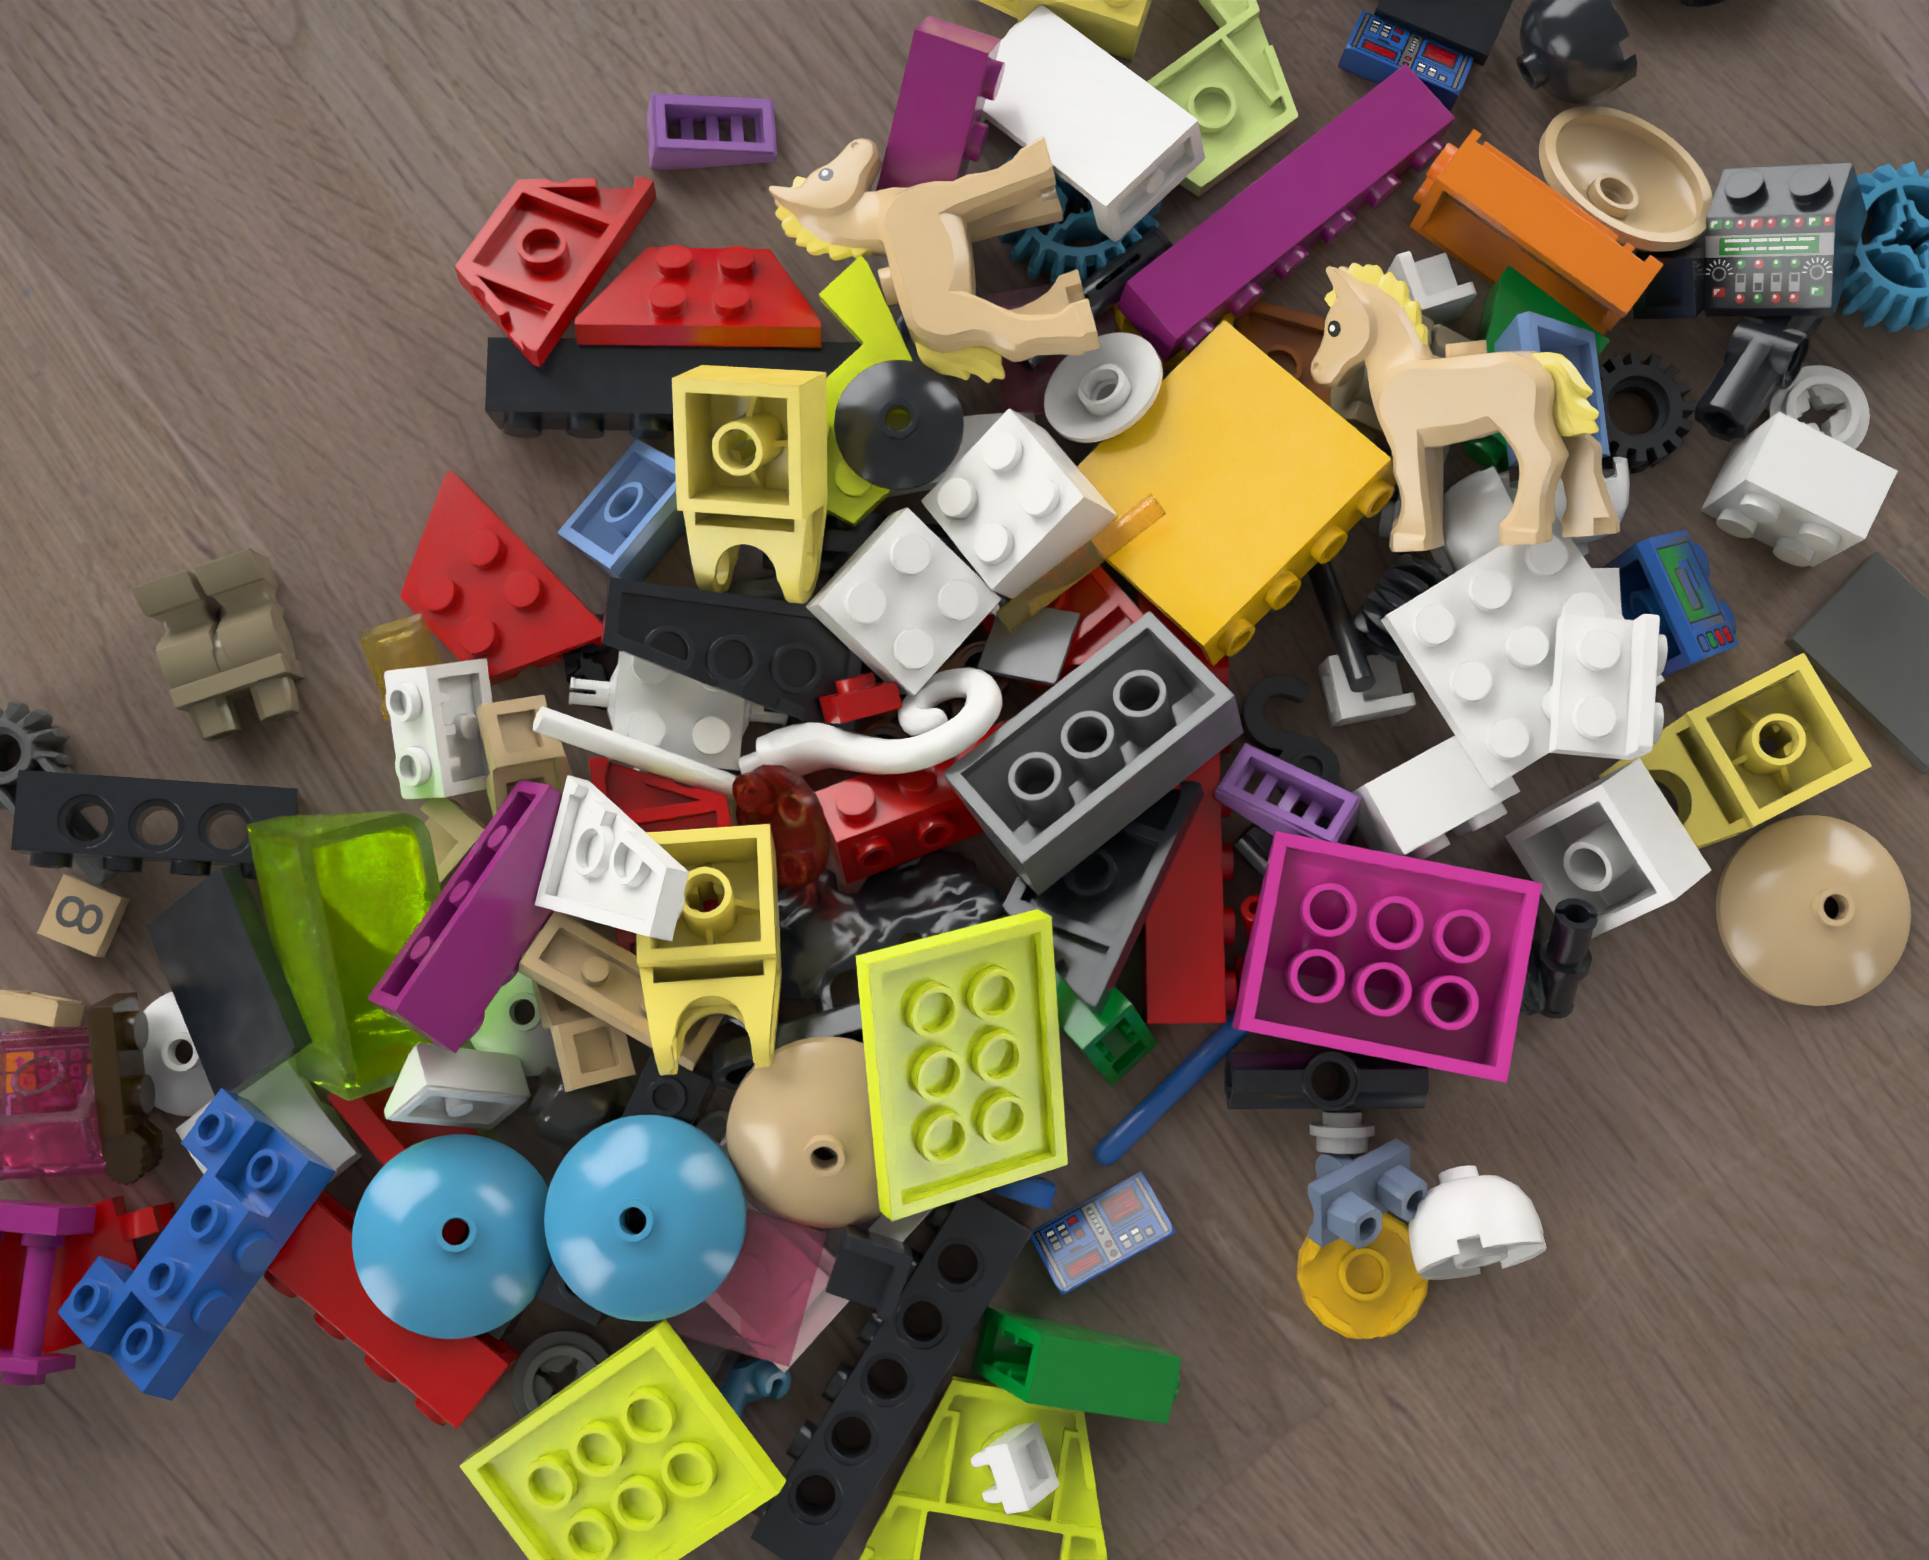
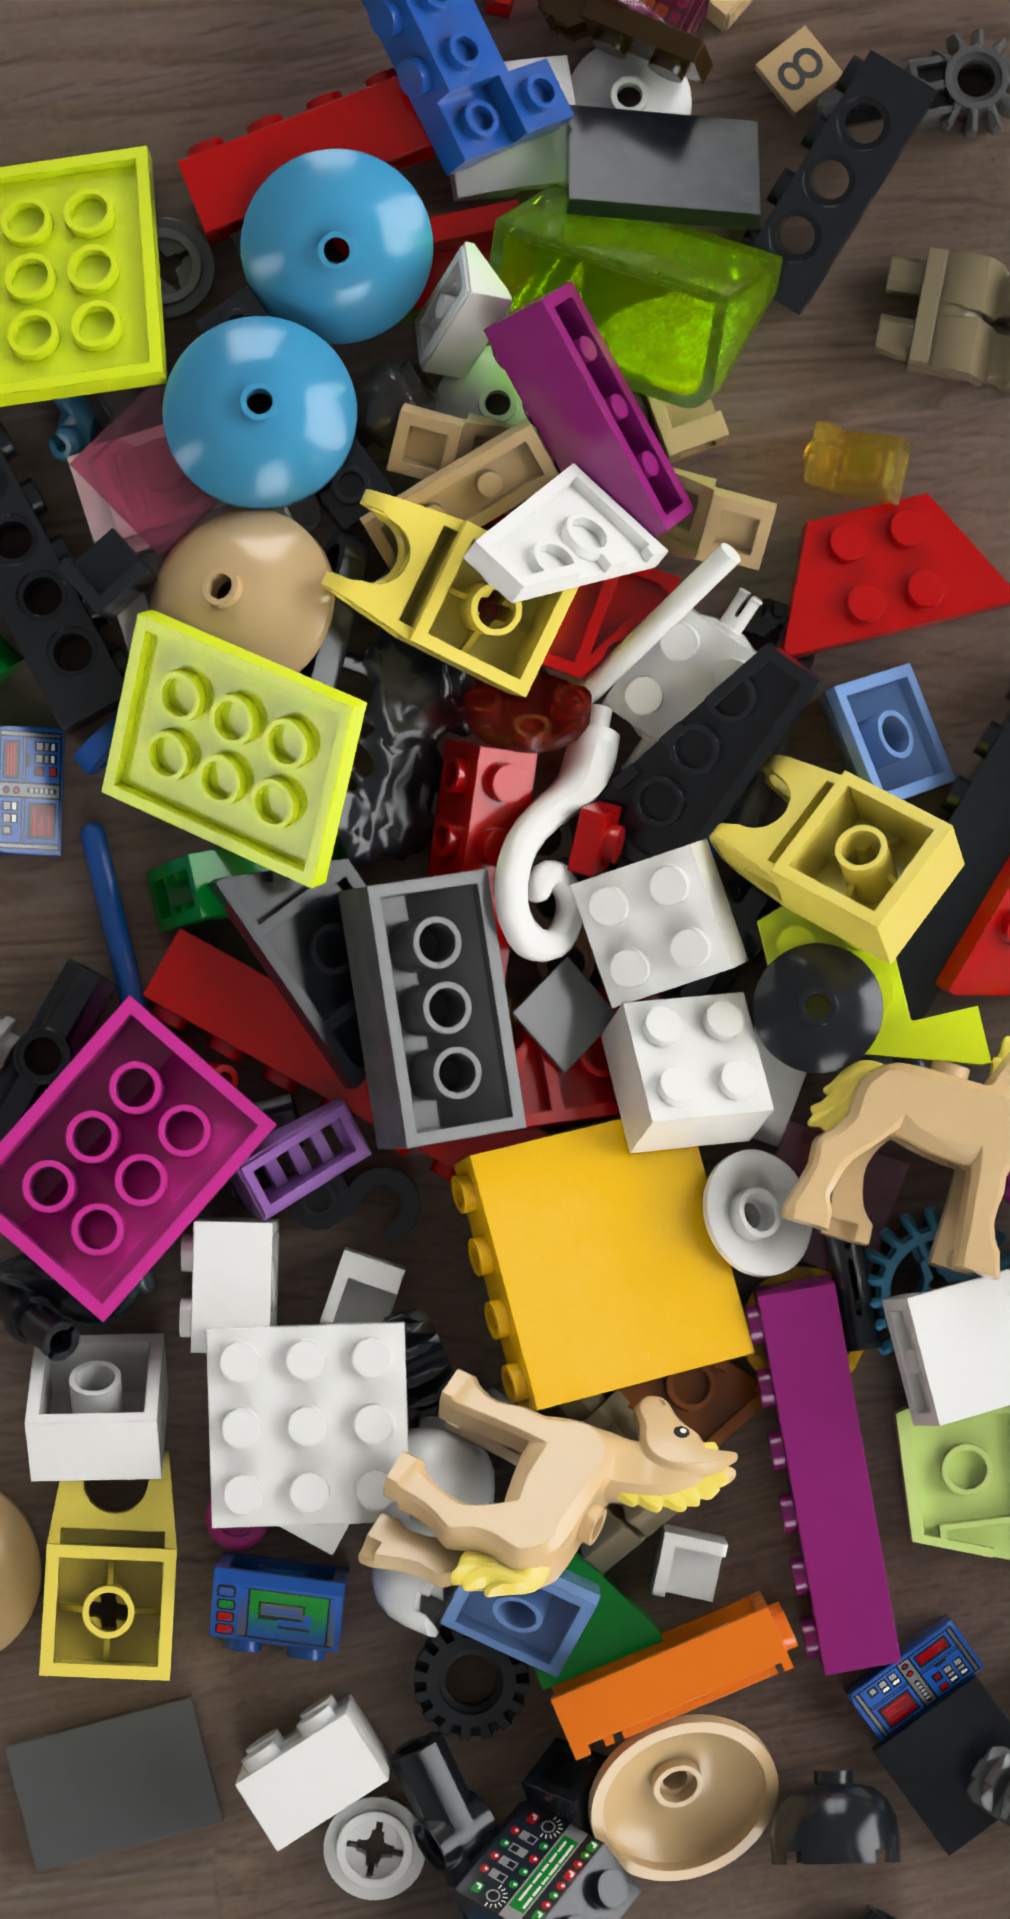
camera: 120 degrees right, 5 degrees up
(438, 727) = (780, 463): white bracket -> none
(1081, 562) = (606, 1097): clear yellow bar -> none
(1341, 627) = (420, 1296): black bar -> none
(1607, 686) = (234, 1465): white bracket -> none

